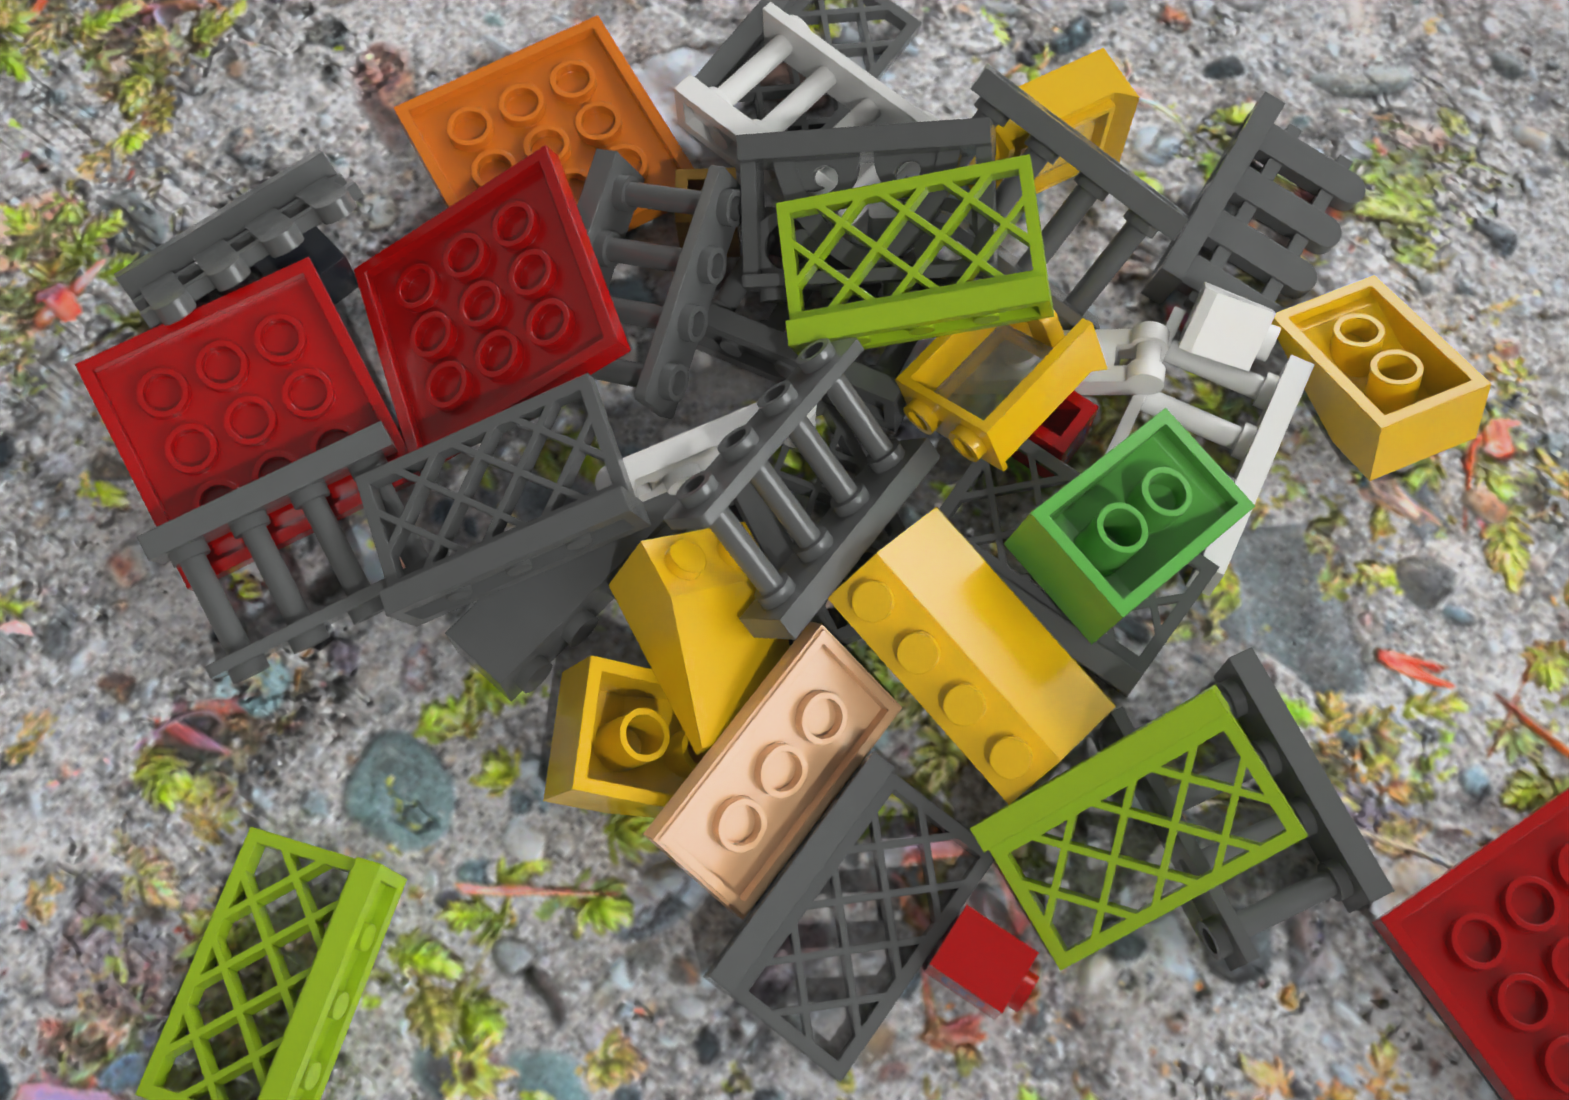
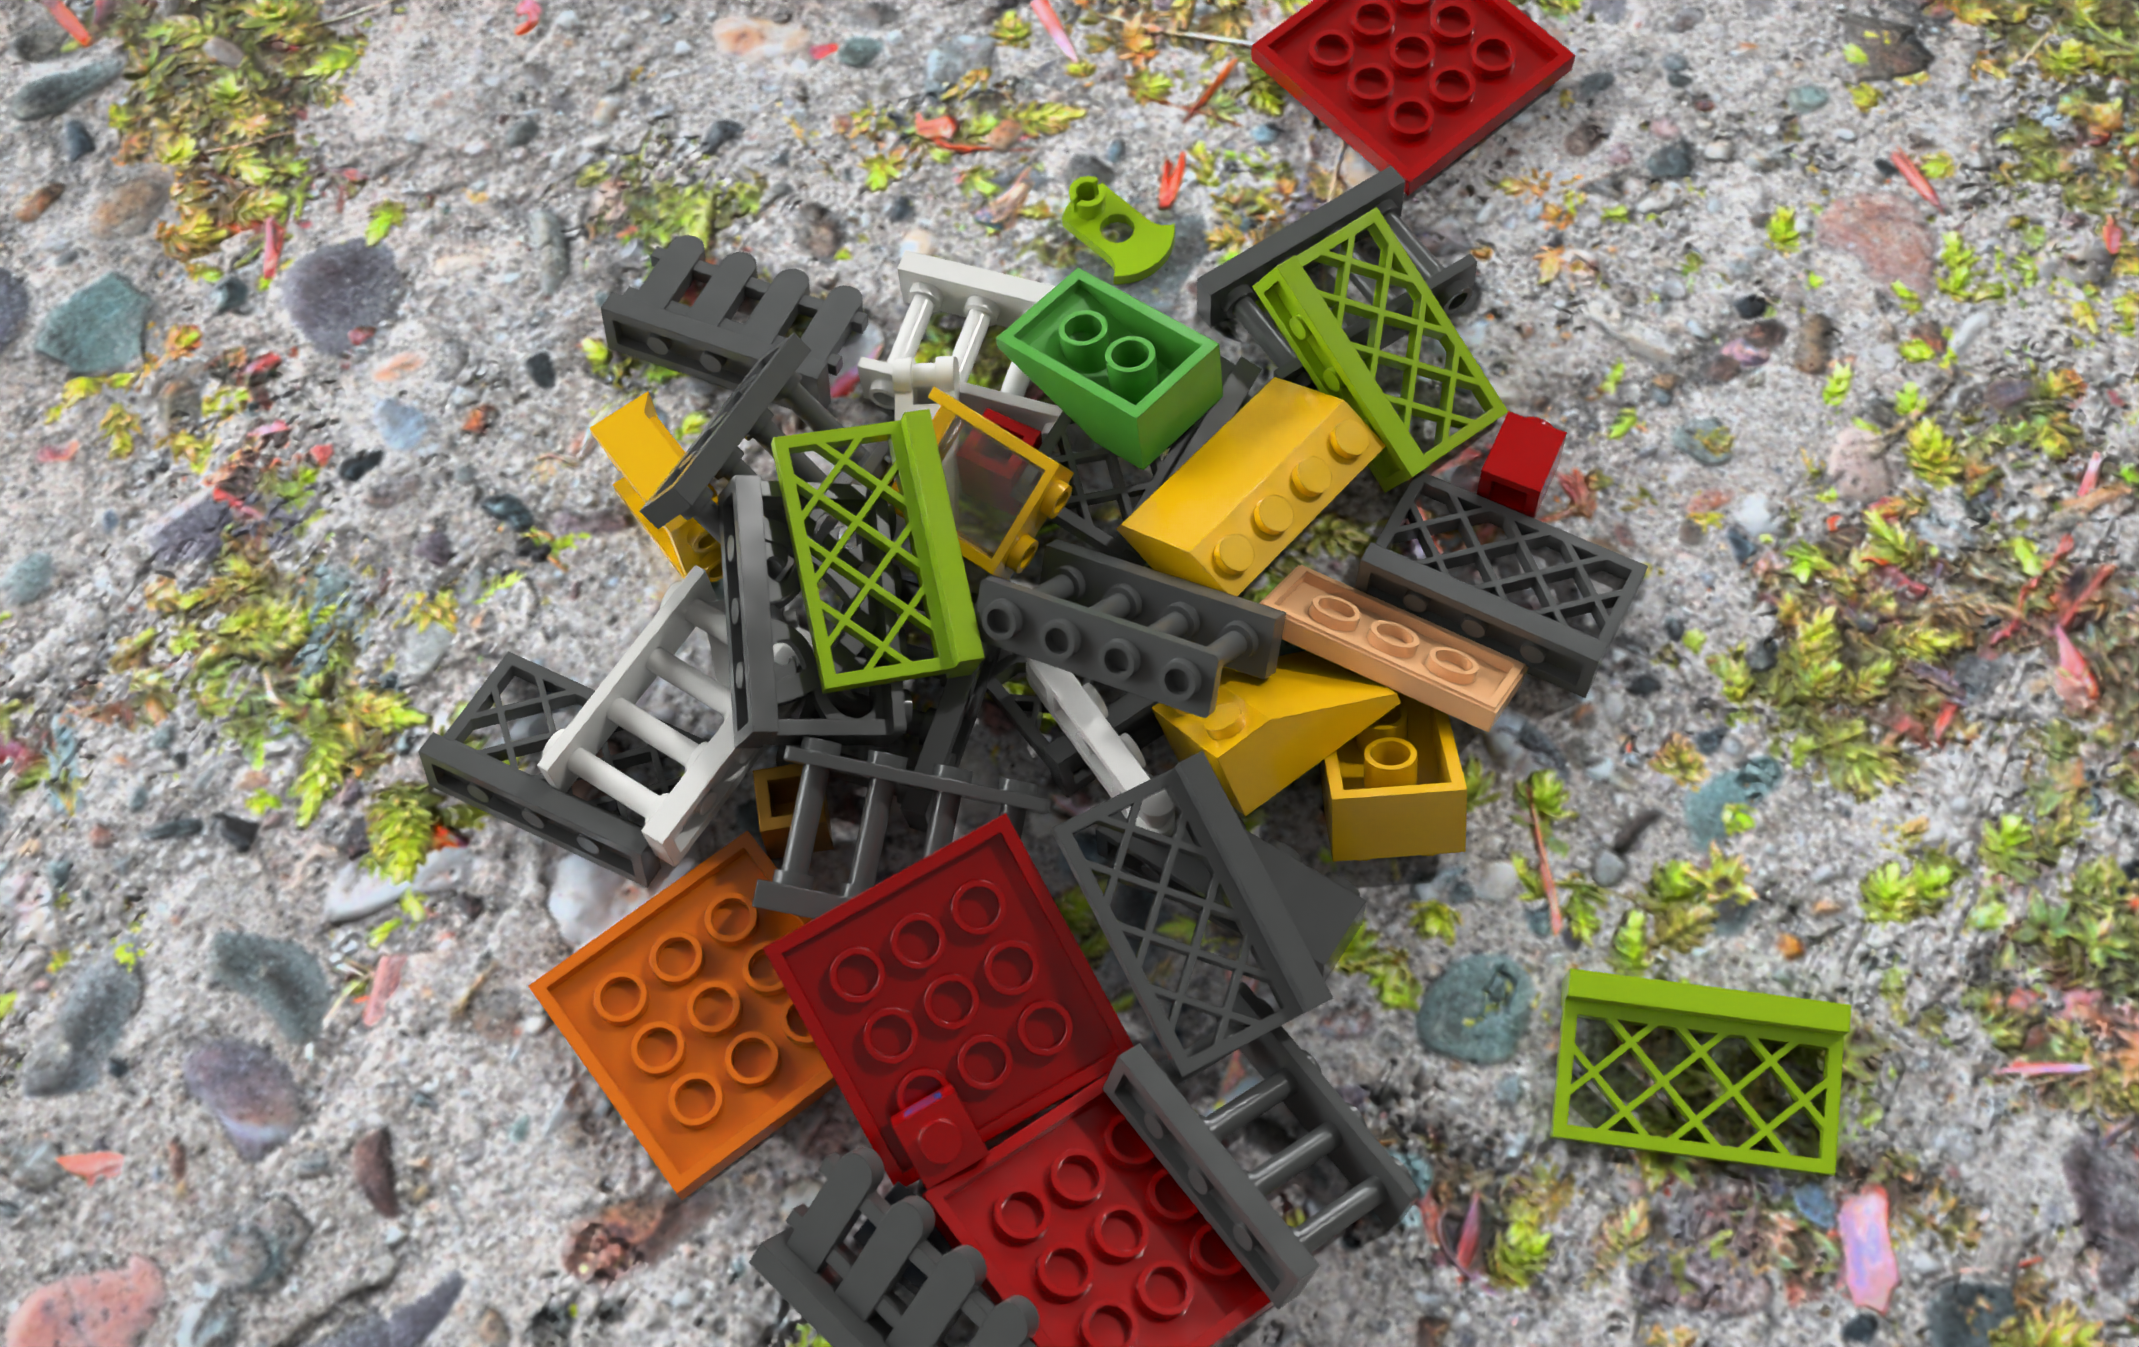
camera: 95 degrees left, 5 degrees down
(365, 283) = (939, 1136): none -> red brick
(1229, 328) = (873, 323): white slope -> none
(1322, 625) = (1096, 206): none -> lime piece
(1382, 377) = (896, 197): yellow slope -> none

